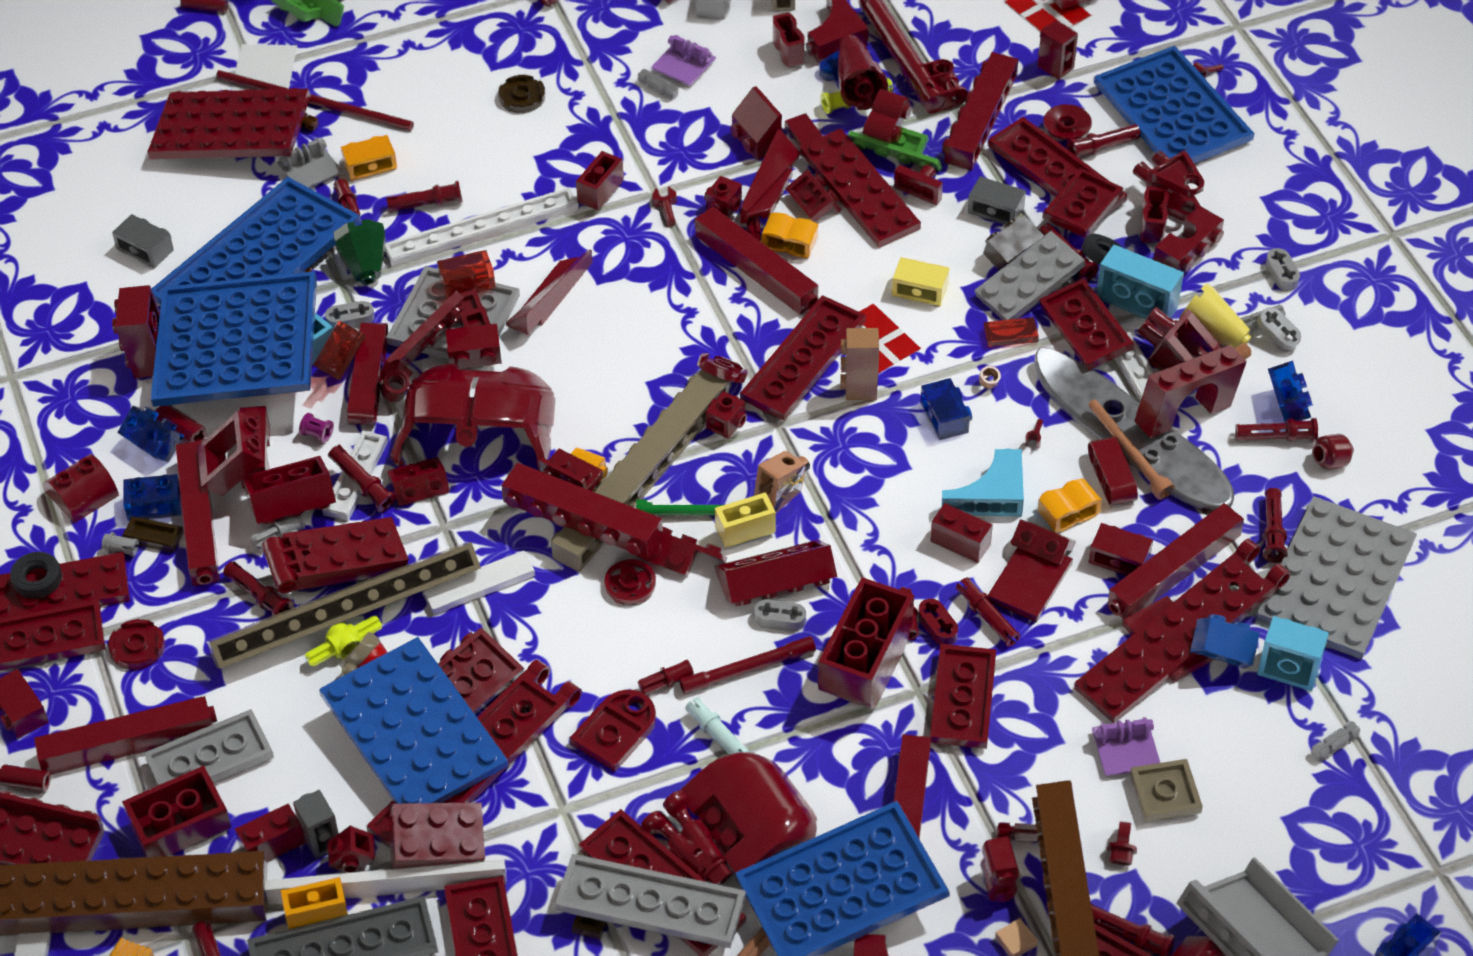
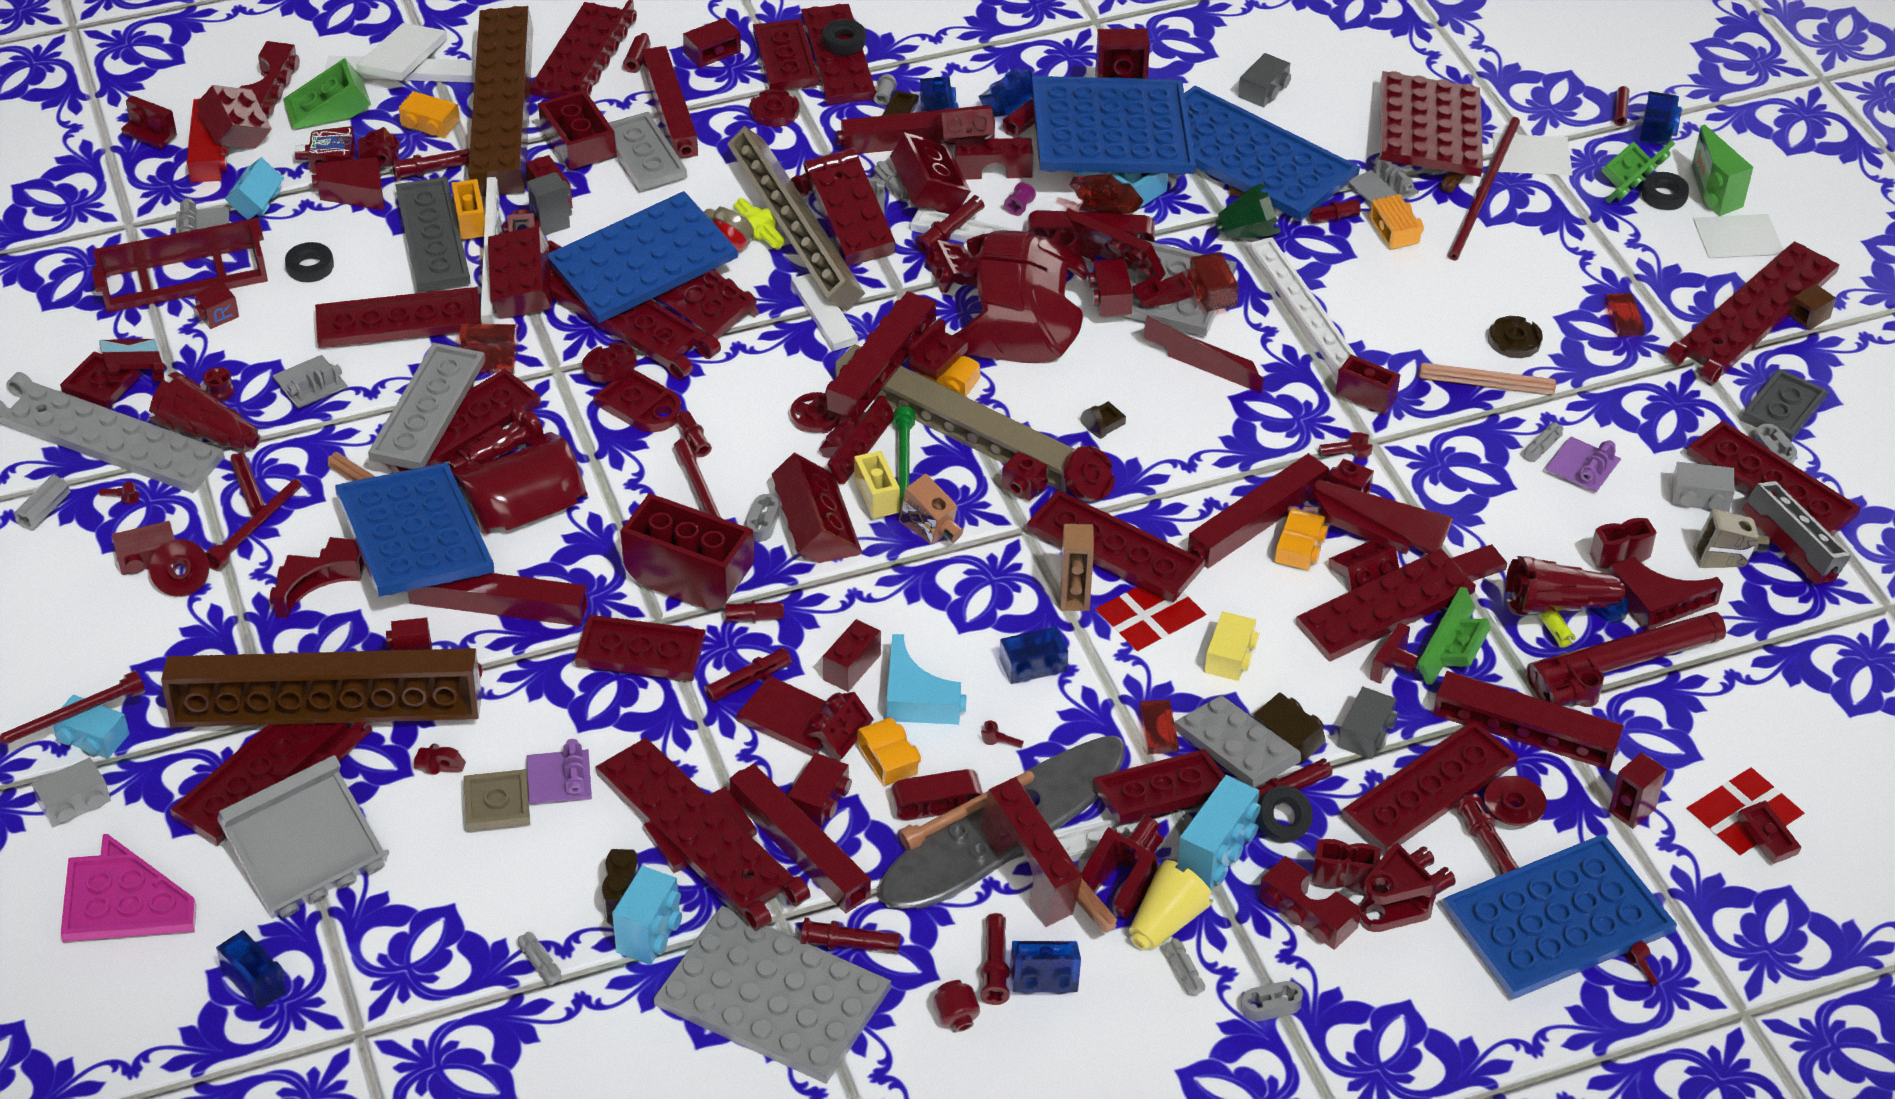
camera: 90 degrees right, 5 degrees down
(81, 488) = (951, 58): dark red brick -> none
(350, 314) = (1176, 218): light grey beam -> none
(436, 195) = (1343, 272): dark red pin -> none
(494, 24) = (1624, 314): none -> clear red tile
(536, 864) = (497, 342): none -> clear red brick
(562, 756) = (609, 363): none -> dark red tile
(578, 113) = (1487, 378): none -> nougat axle
(635, 368) = (1102, 419): none -> dark brown tile
(711, 724) = (630, 462): light aqua pin -> none
(756, 123) = (1473, 513): dark red slope -> none
(887, 117) = (1481, 611): dark red brick -> none
(941, 619) = (741, 637): dark red beam -> none
(986, 373) = (1087, 695): medium nougat hinge -> none
(1082, 203) = (1363, 797): dark red tile -> none
(1225, 641) = (670, 848): blue brick -> none
(1254, 682) = (620, 872): none -> dark brown brick
(1279, 329) = (1159, 976): light grey beam -> none

